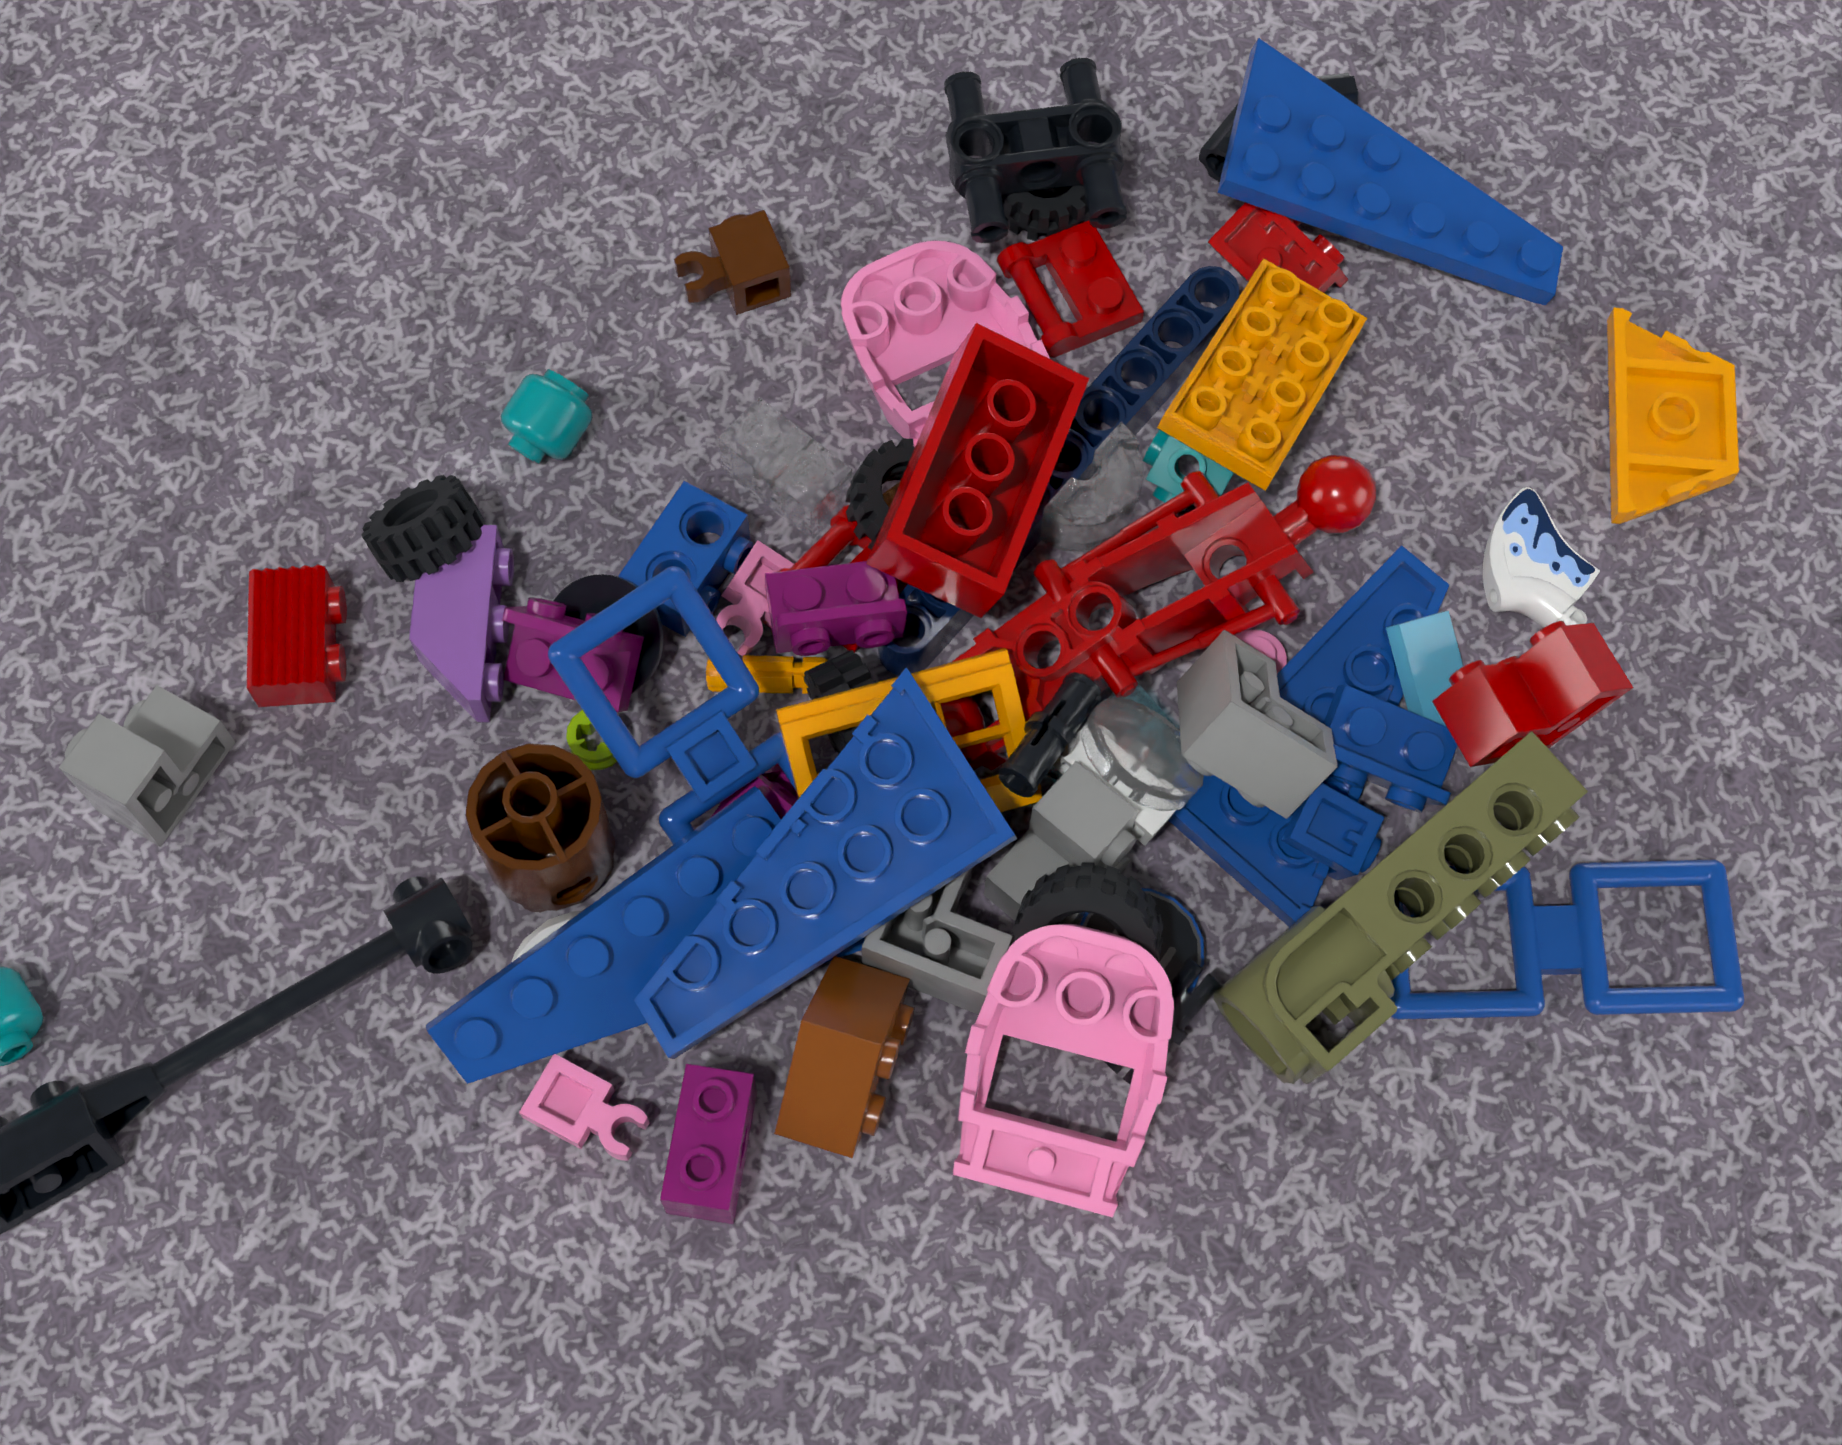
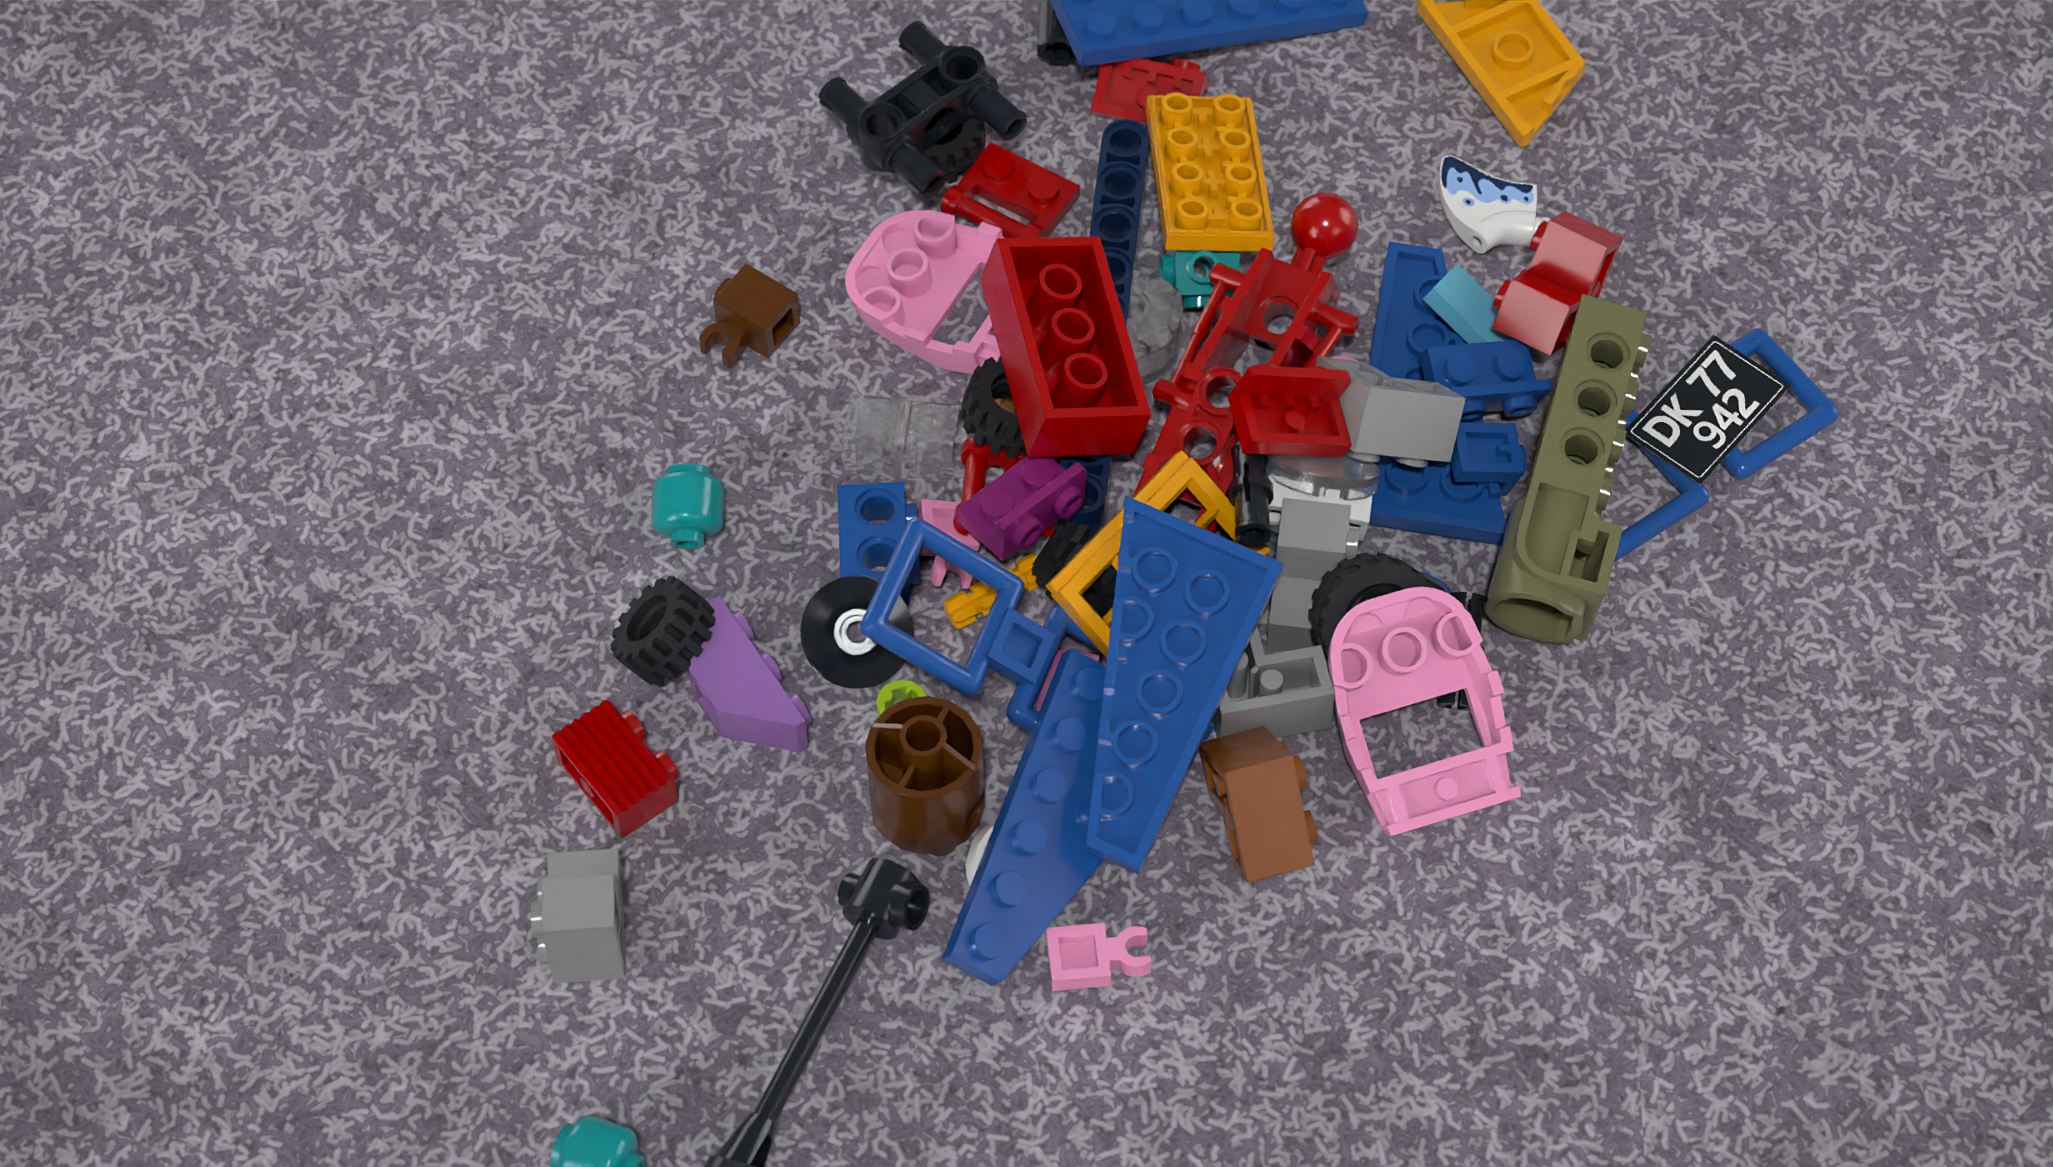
camera: 30 degrees left, 10 degrees down
(543, 623) = (838, 659): magenta bracket -> none
(709, 1144) = (1206, 918): magenta brick -> none
(1142, 676) = (1291, 411): none -> red bracket
(1603, 918) = (1707, 409): none -> black sticker

